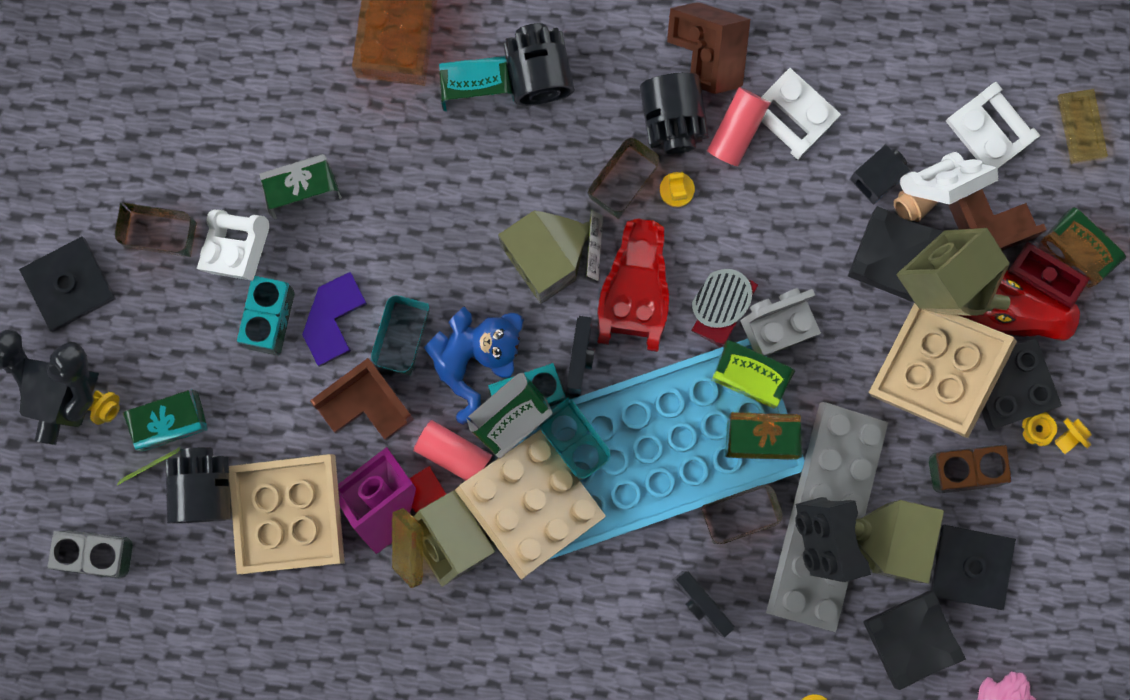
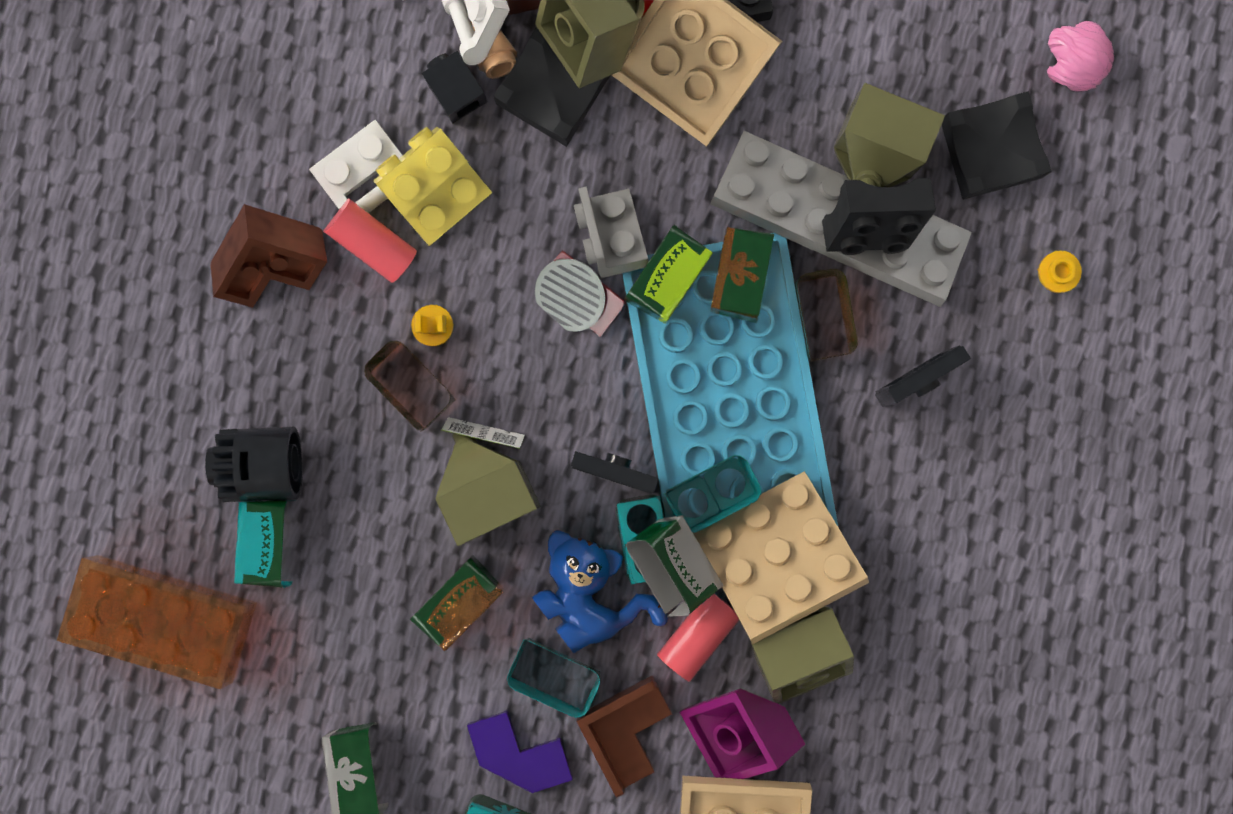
camera: 80 degrees left, 5 degrees up
(407, 547) = (805, 707): clear yellow tile -> none
(427, 488) = (738, 672): red tile -> none
(450, 246) = (458, 603): none -> piece
(636, 290) = (545, 393): red animal -> none
(674, 112) = (341, 313): black gear -> none
(794, 168) = (431, 184): none -> light yellow plate
(943, 485) = (810, 84): reddish brown piece -> none
(973, 567) = (923, 63): black plate -> none

